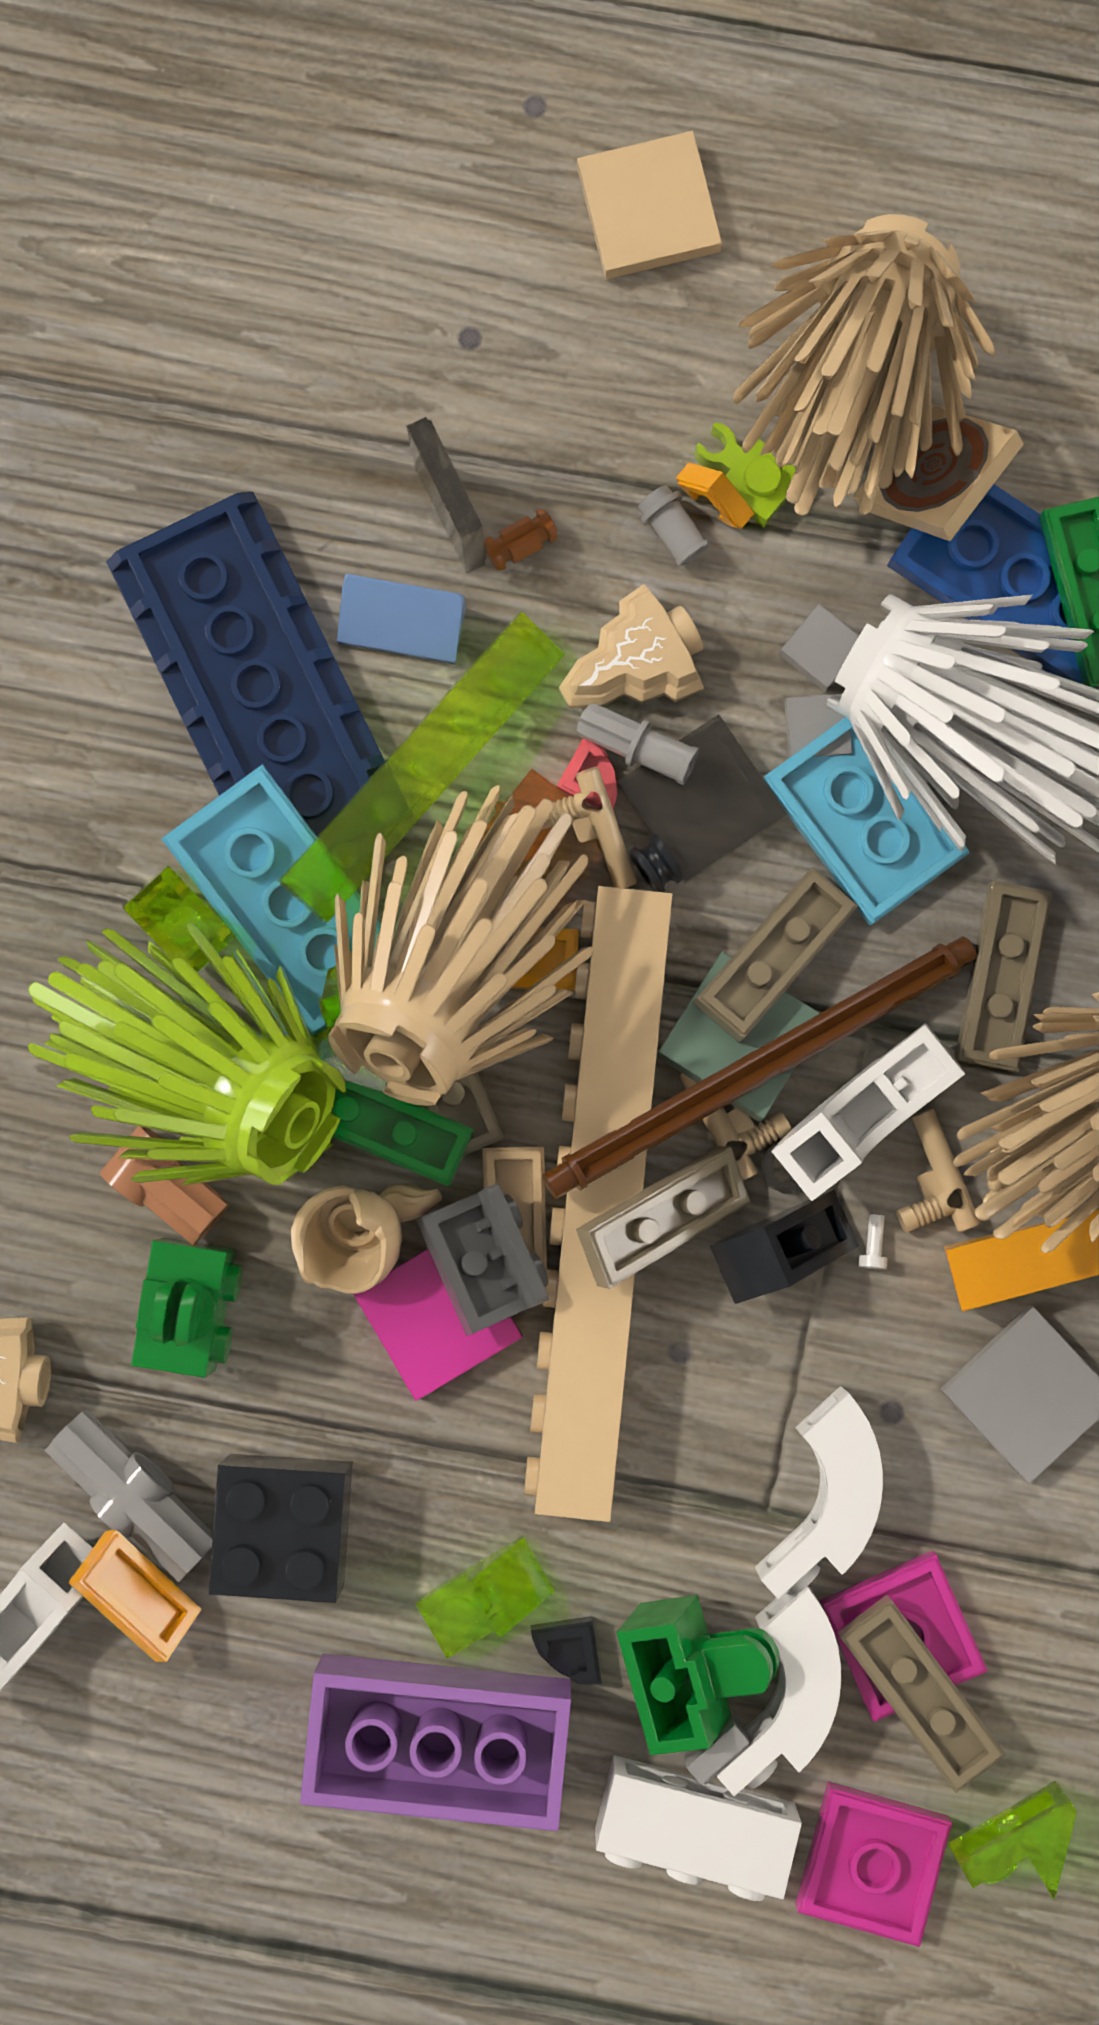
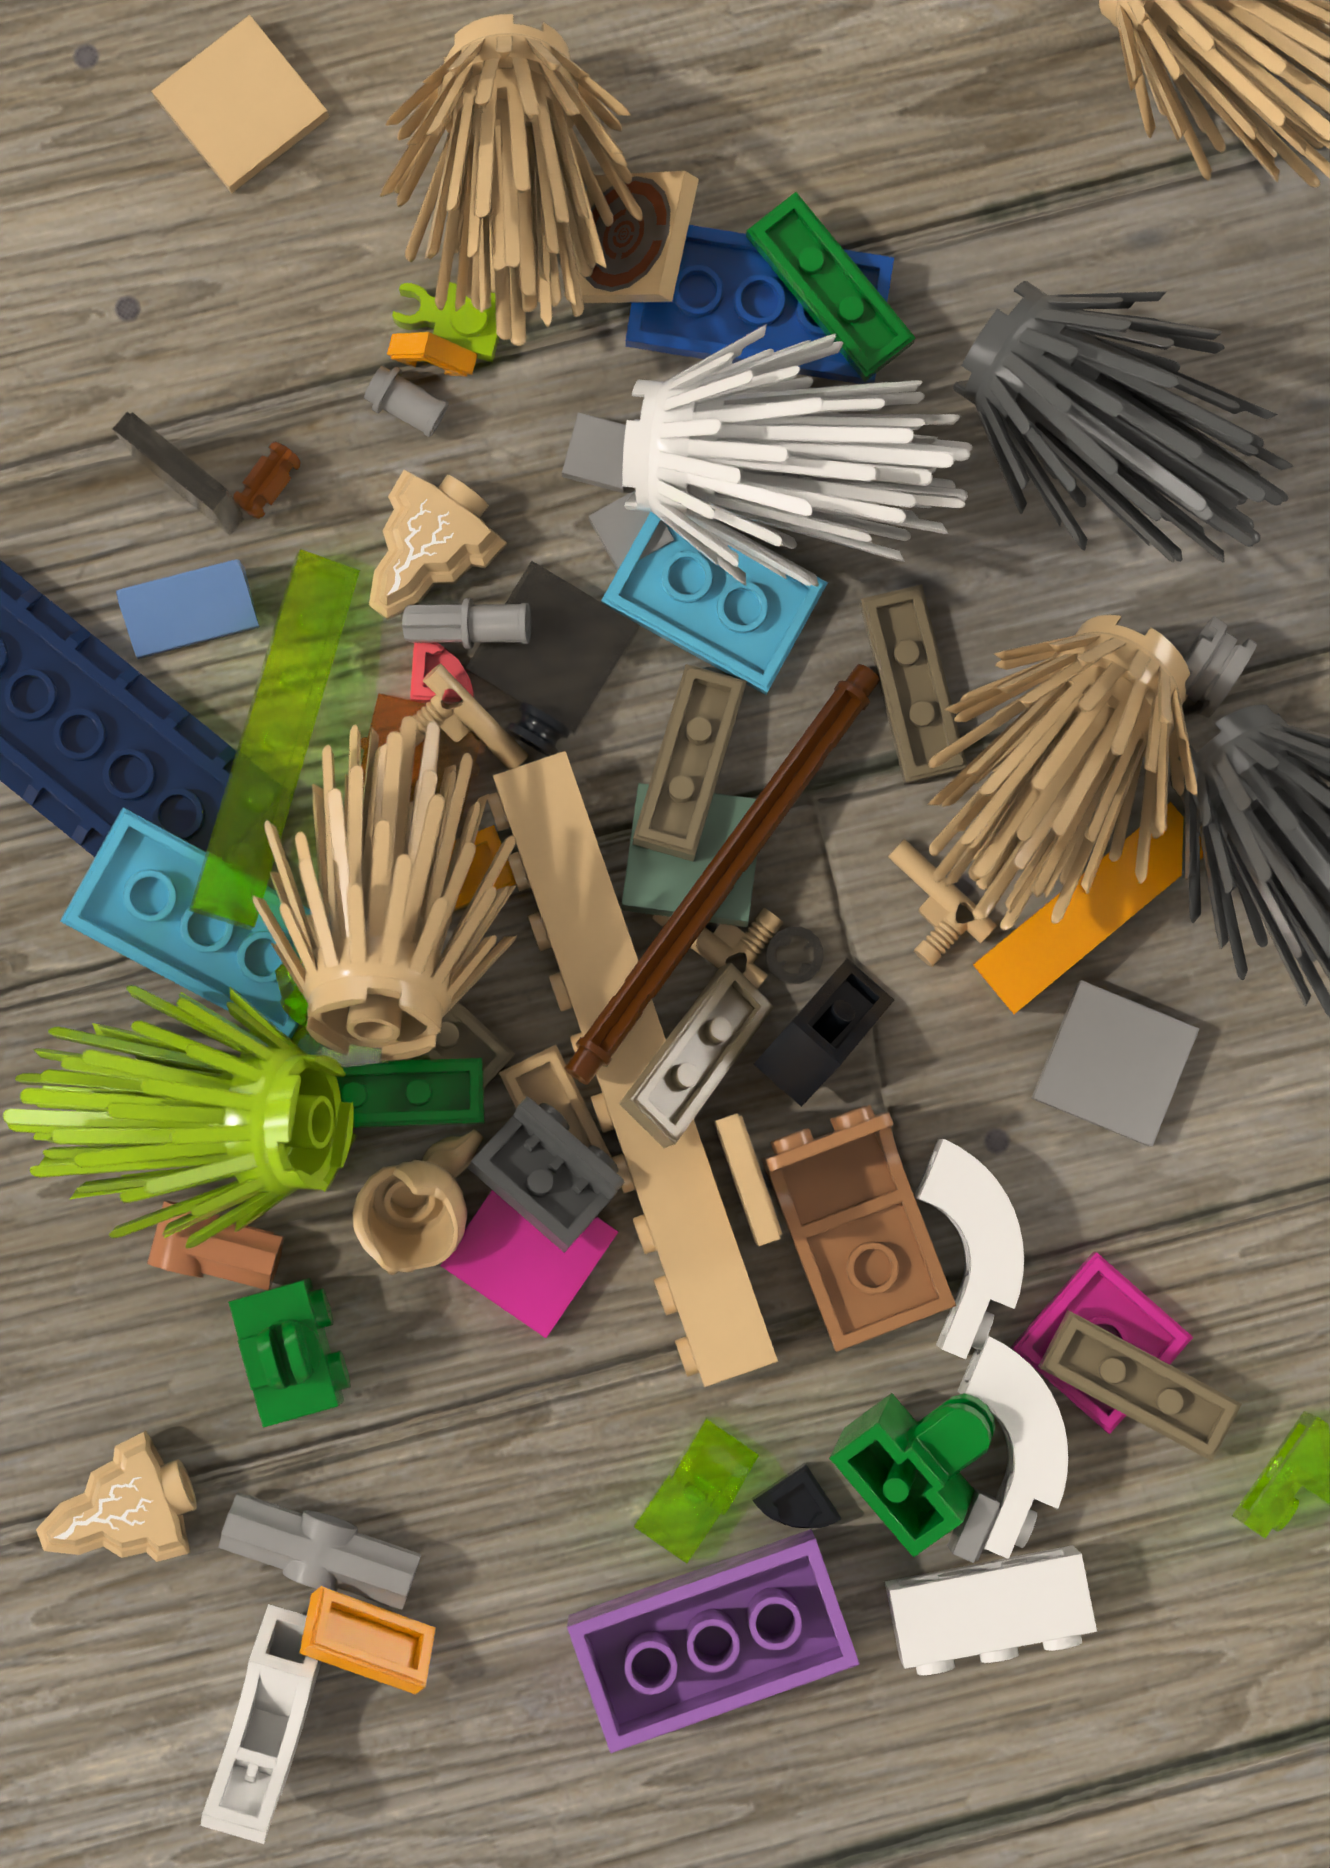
camera: 35 degrees left, 0 degrees up
(164, 909) = (96, 989): clear neon green slope -> none
(280, 1528) = (474, 1514): black brick -> none
(658, 1348) = (748, 1179): none -> tan tile
(734, 1433) = (857, 1227): none -> medium nougat bracket
(866, 1110) = (841, 869): white arch -> none
(873, 1255) = (912, 1004): white piece -> none
(873, 1864) = (1170, 1565): dark pink tile -> none

